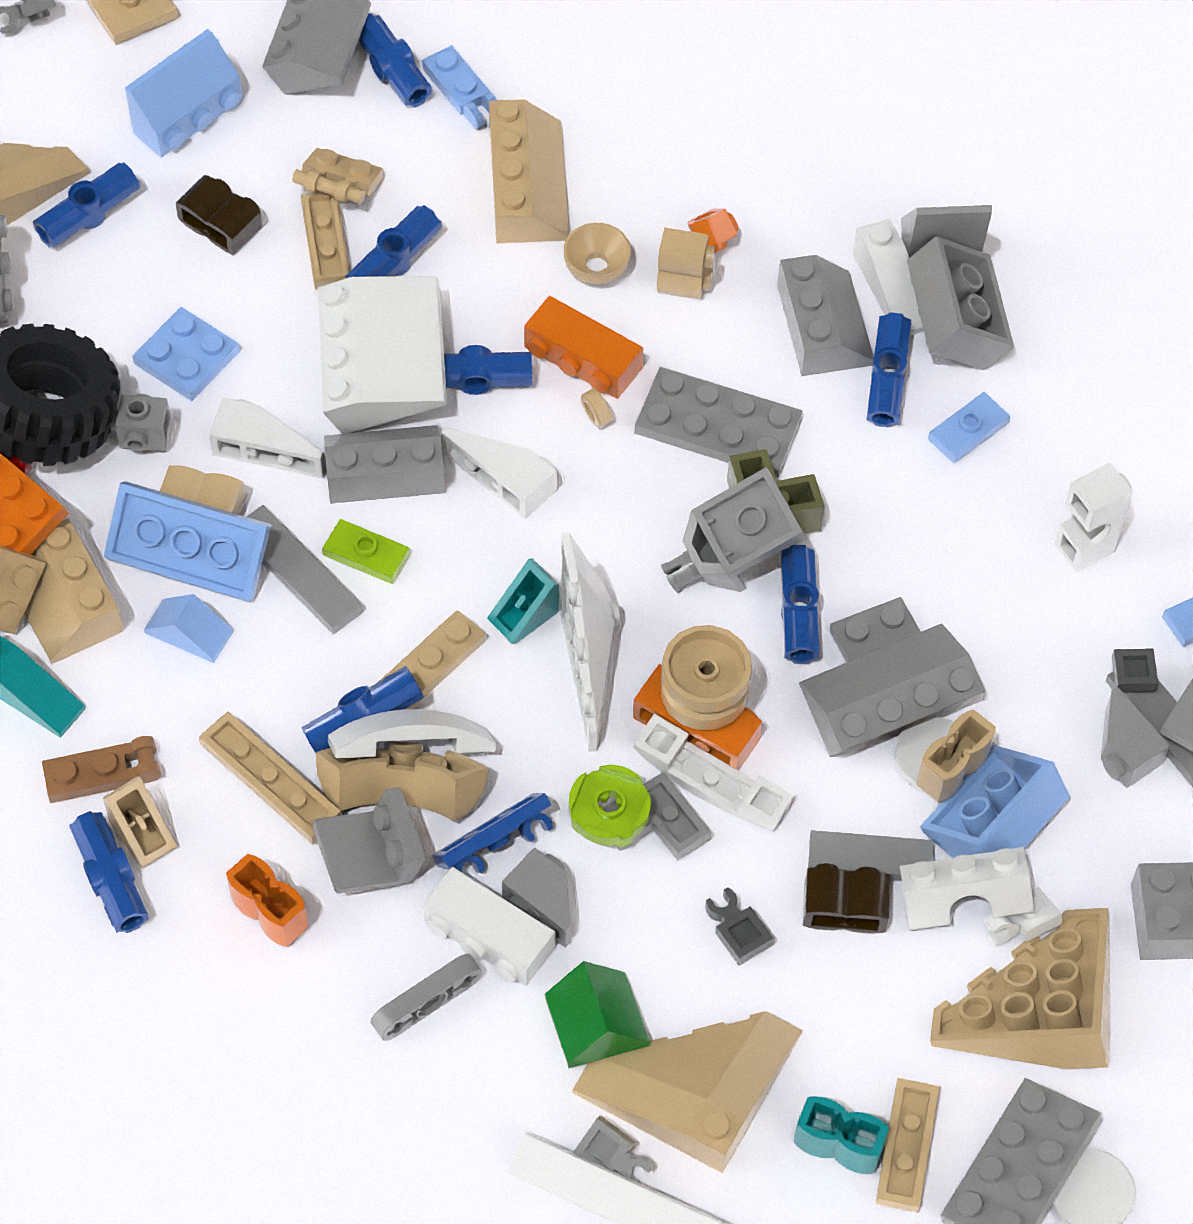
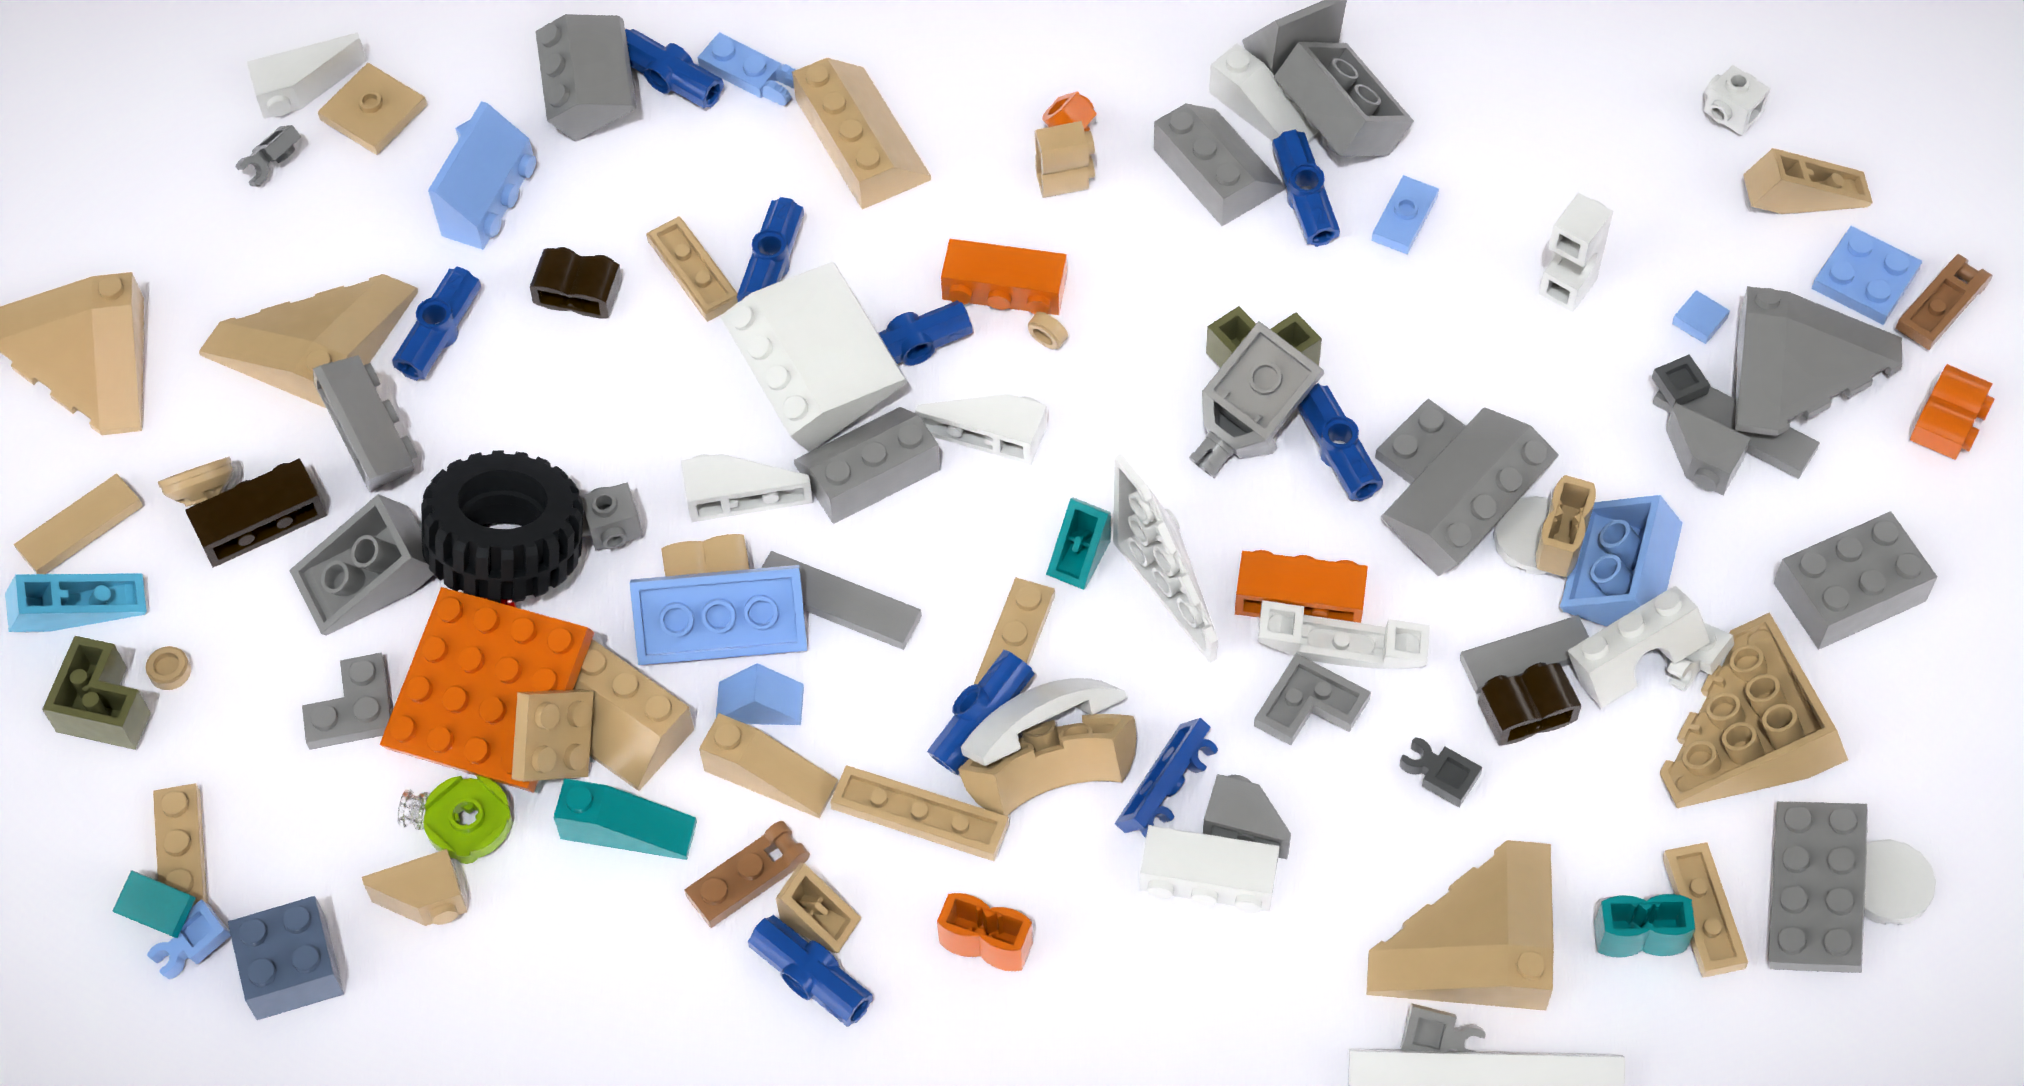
camera: 20 degrees left, 0 degrees up
(160, 684) = (765, 766): none -> tan slope
(186, 353) = (613, 432): light blue plate -> none
(338, 175) = (676, 200): tan plate -> none
(366, 551) = (895, 556): lime plate -> none
(371, 846) = (1058, 836): light grey bracket -> none
(426, 997) = (1184, 961): light grey beam -> none
(595, 1014) = (1352, 911): green slope -> none
(601, 242) = (969, 169): tan piece -> none
(609, 827) = (1261, 727): lime plate -> none
(705, 677) = (1301, 544): tan wheel -> none
(716, 419) = (1163, 298): light grey plate -> none

